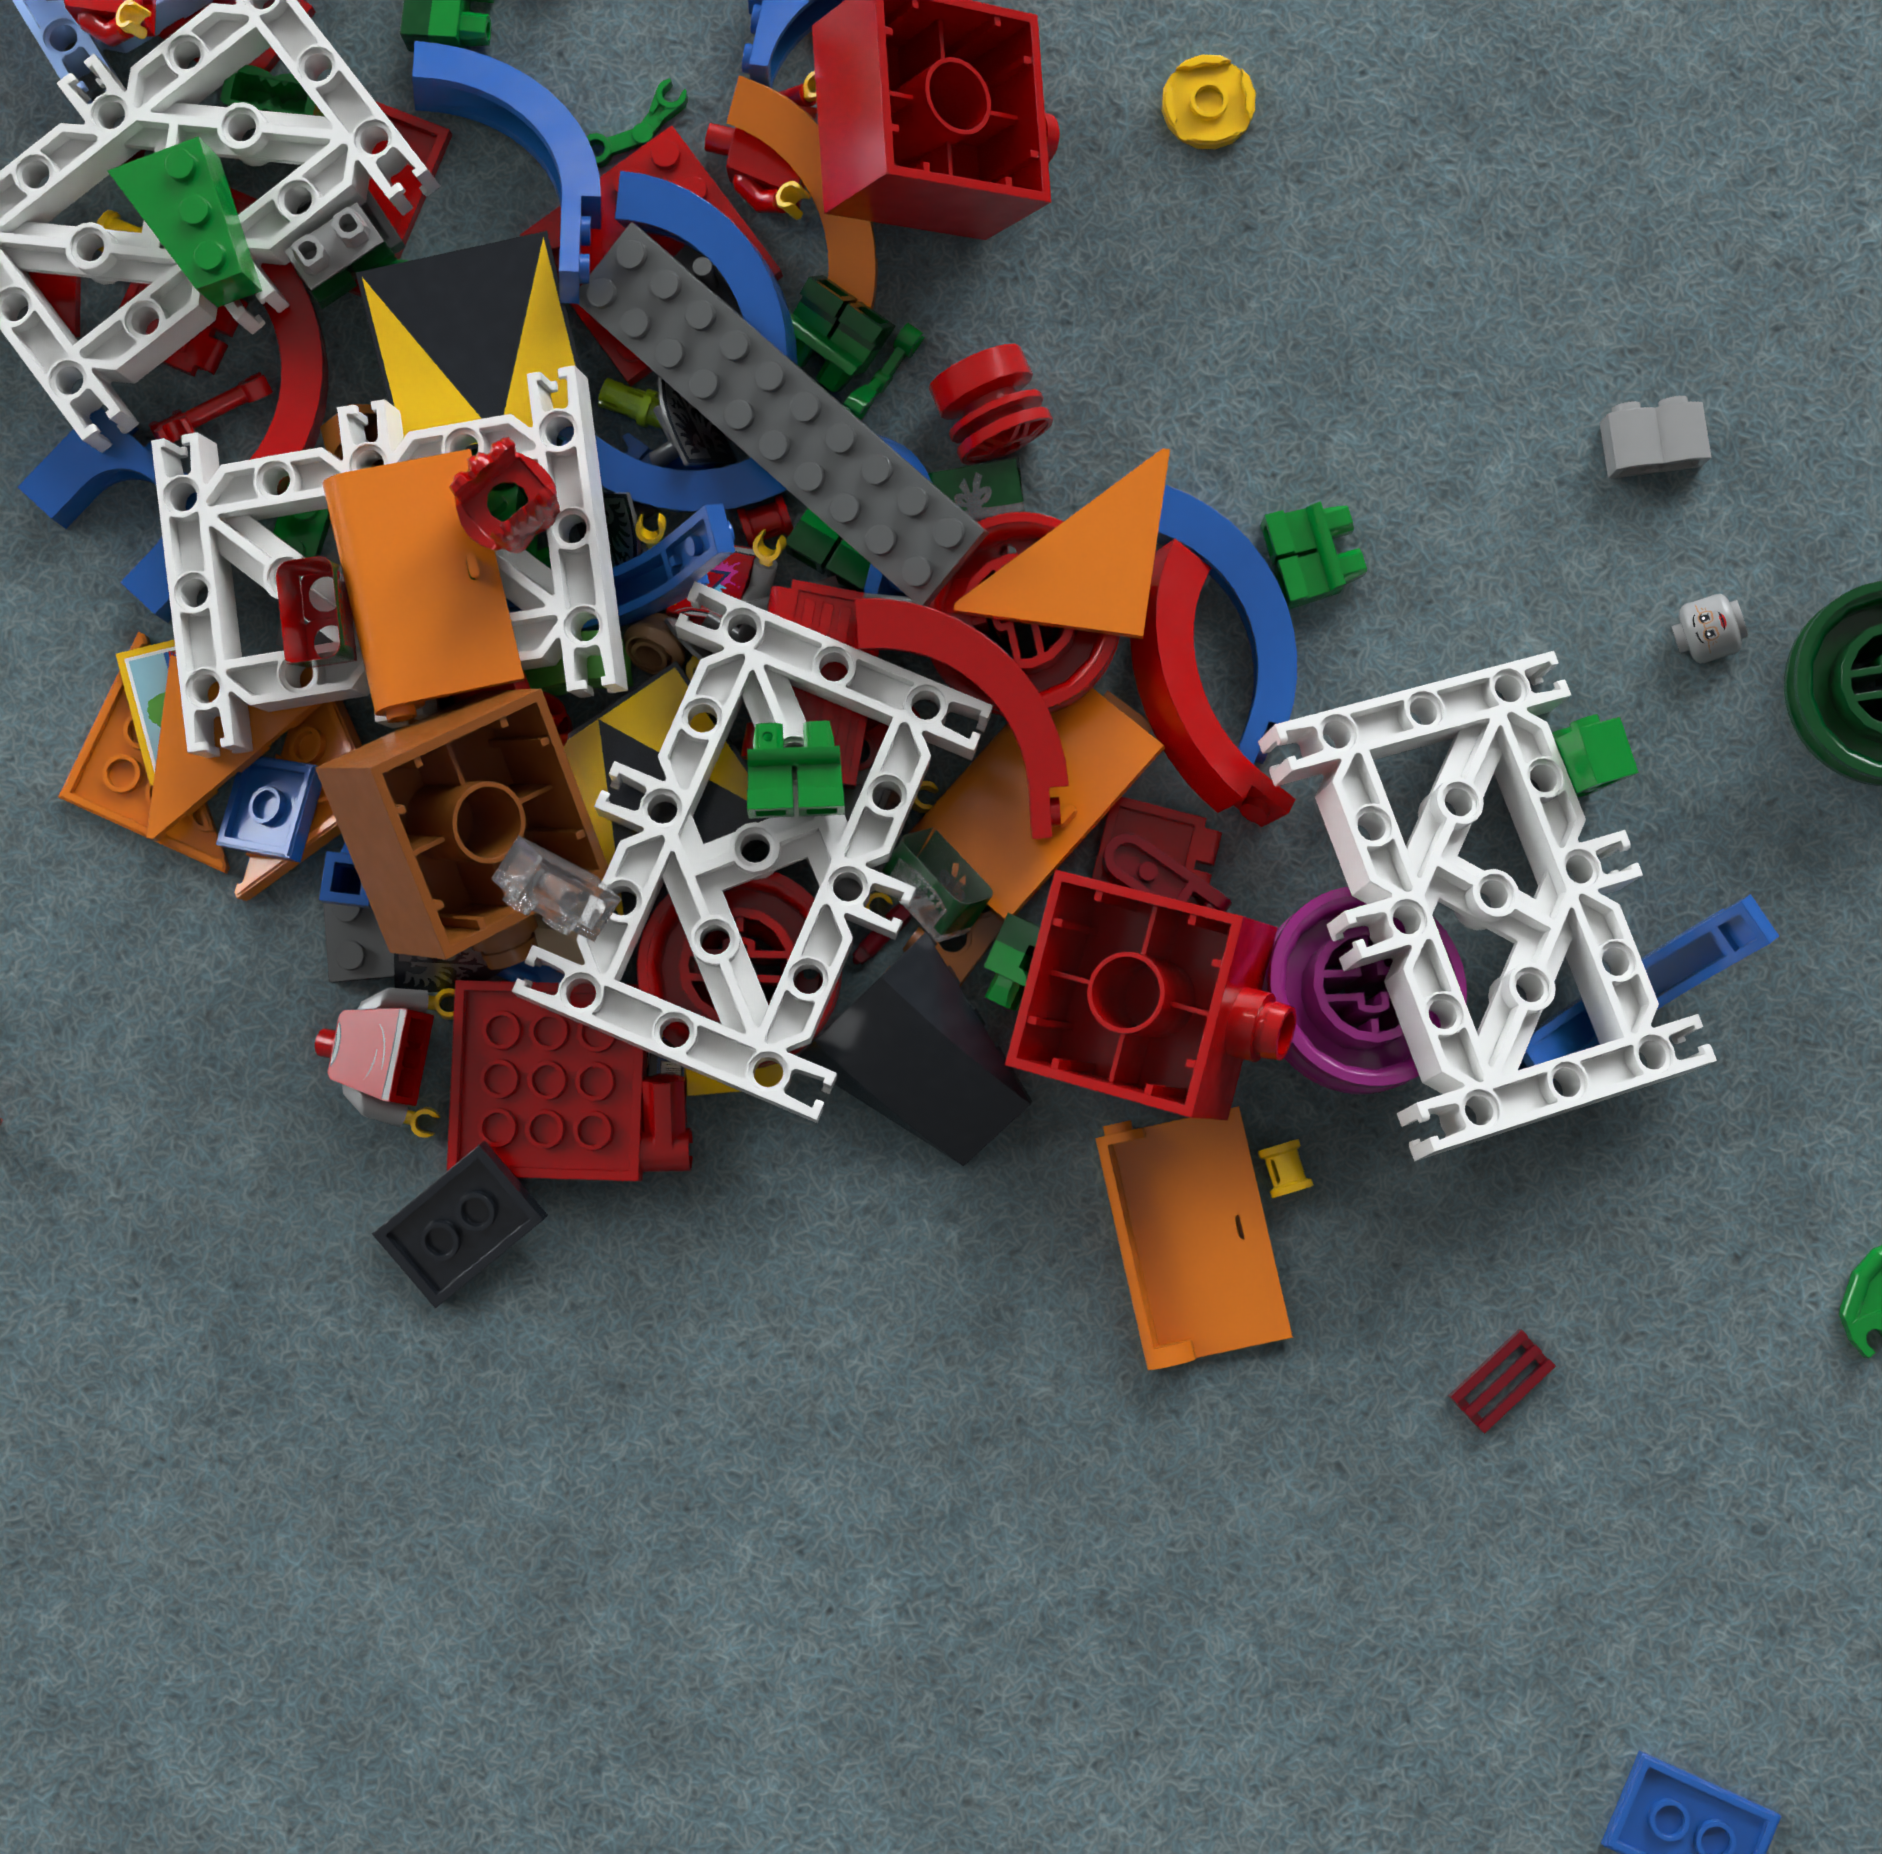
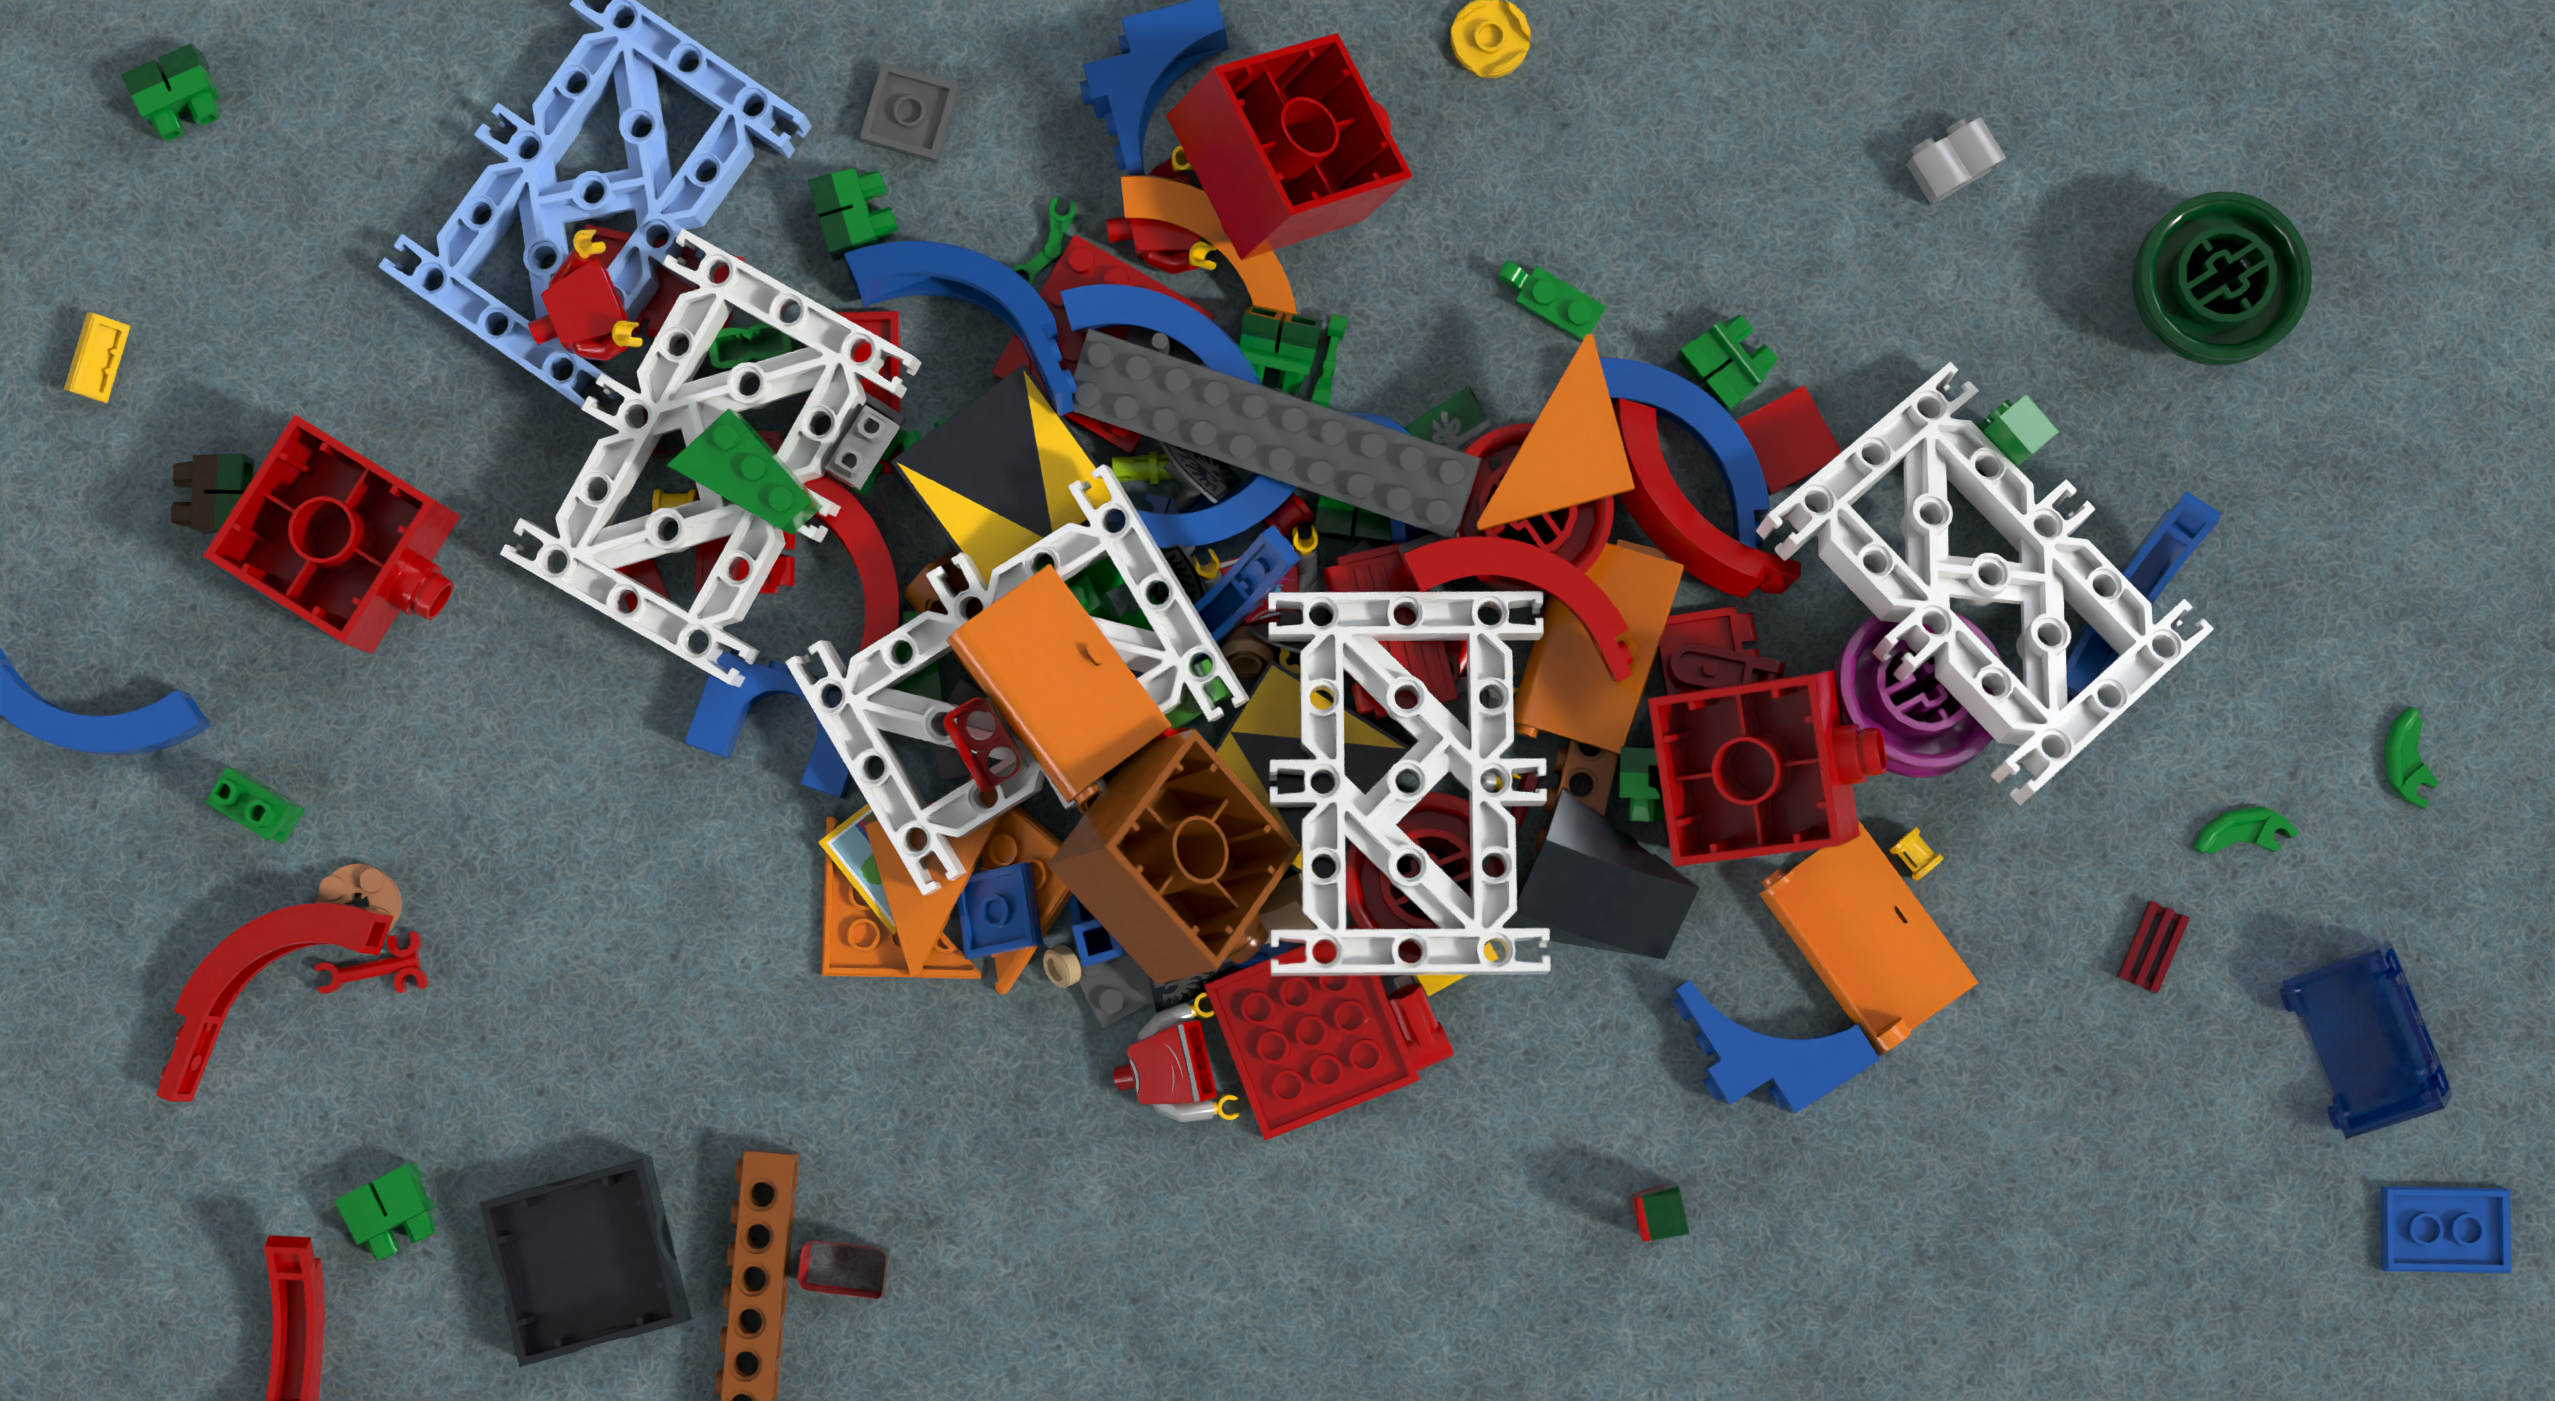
camera: 25 degrees left, 0 degrees up
(184, 423) = (793, 637): red bar -> none
(308, 897) = (1062, 966): none -> tan tile
(460, 1224) = (1294, 1174): black plate -> none
(500, 467) = (1129, 582): red piece -> none
(555, 889) = (1275, 879): clear brick -> none
(773, 768) = (1432, 701): green hips -> none
(829, 1436) = (1660, 1212): none -> dark green piece
(947, 889) = (1567, 747): clear piece -> none
(990, 404) = (1428, 352): red wheel -> none
(1055, 1345) = (1746, 1059): none -> blue arch
(1153, 407) = (1553, 300): none -> green plate
(1341, 661) = (1789, 439): none -> red tile
(1659, 1291) = (2244, 825): none -> green piece
(1696, 1586) = (2369, 1040): none -> clear blue windscreen
(1710, 628) = (2062, 291): light grey head -> none

